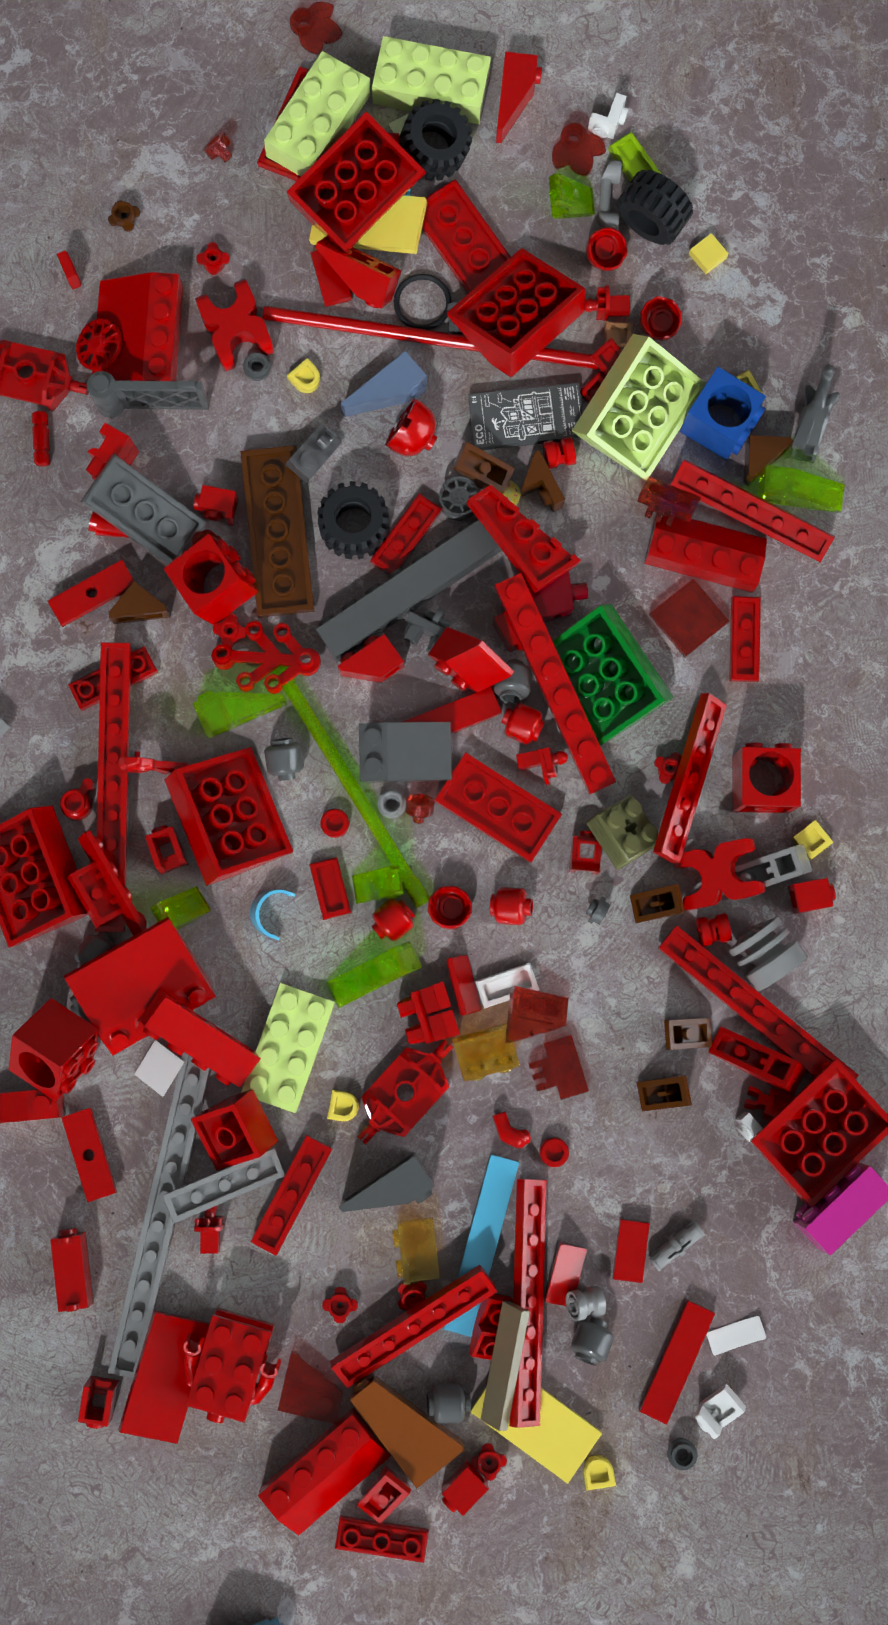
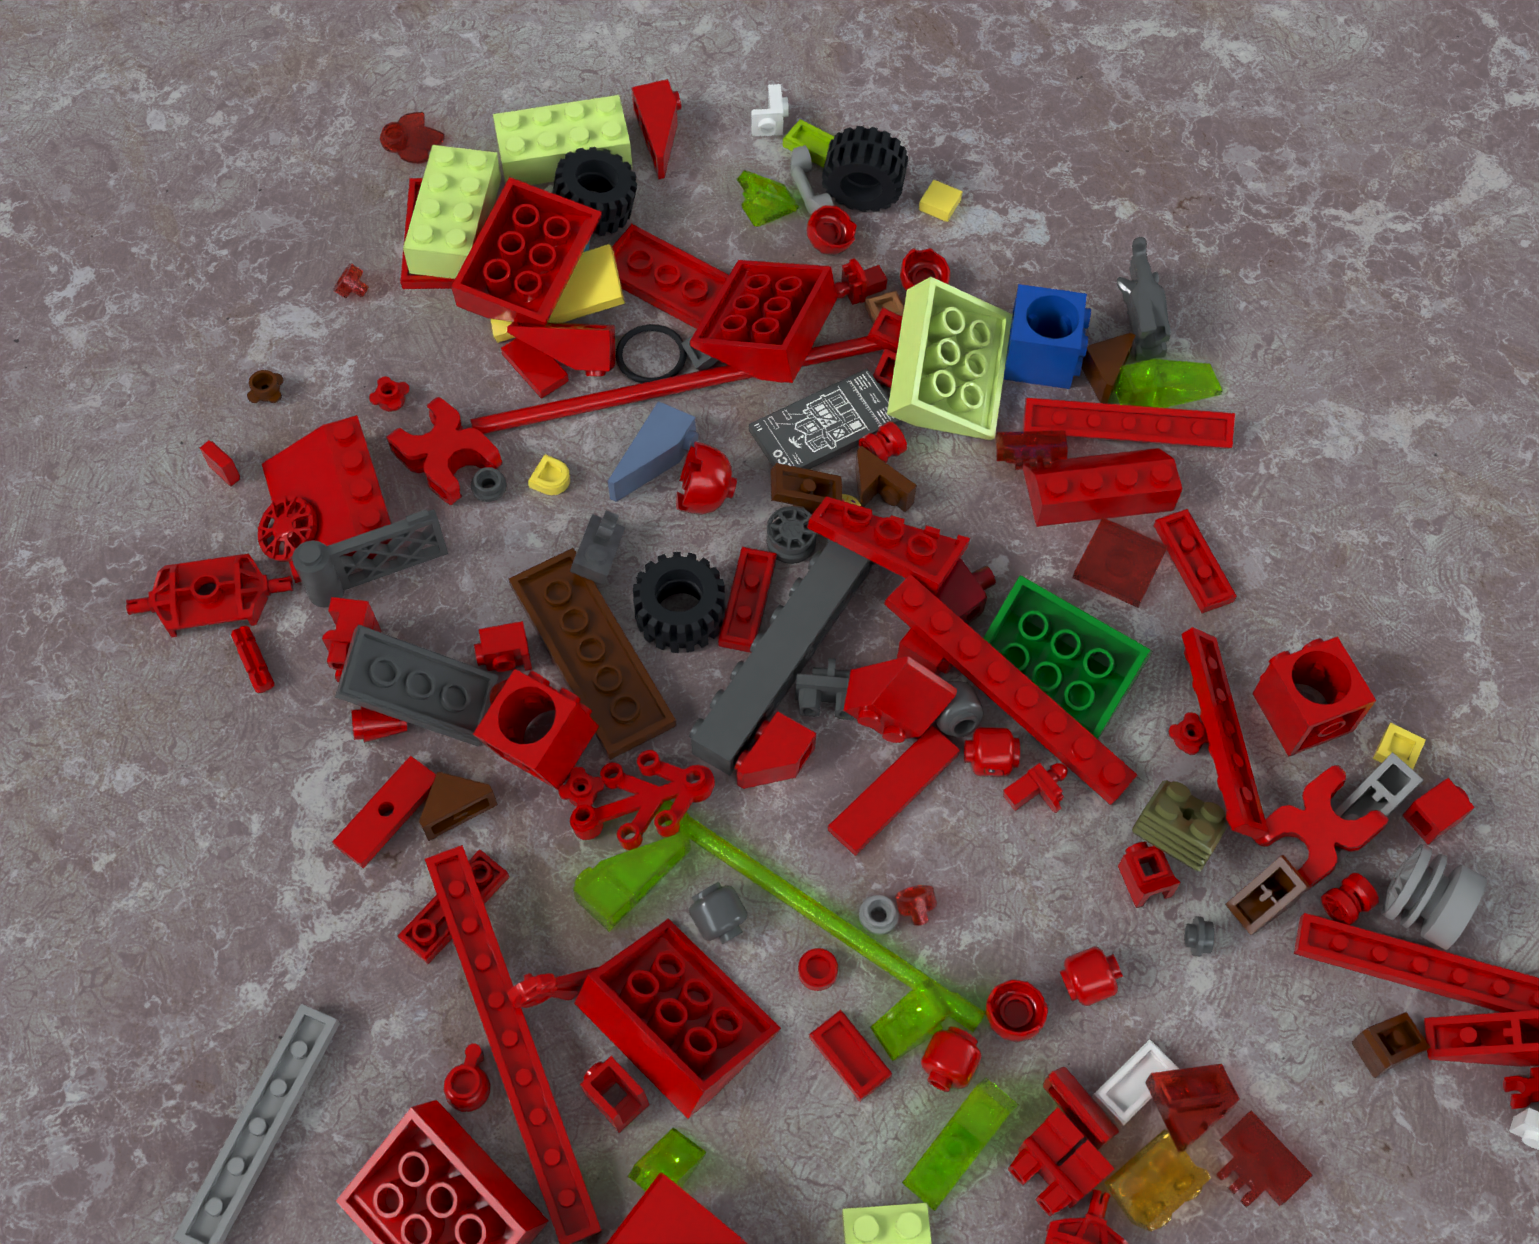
camera: 20 degrees left, 20 degrees down
(101, 889) = (553, 1179): red bracket -> none
(255, 907) = (767, 1129): medium azure helmet -> none
(405, 751) = (868, 840): dark grey slope -> none
(498, 807) = (1013, 863): red plate -> none
(577, 153) = (750, 153): clear red plate -> none
(664, 1093) = (1410, 1131): reddish brown slope -> none

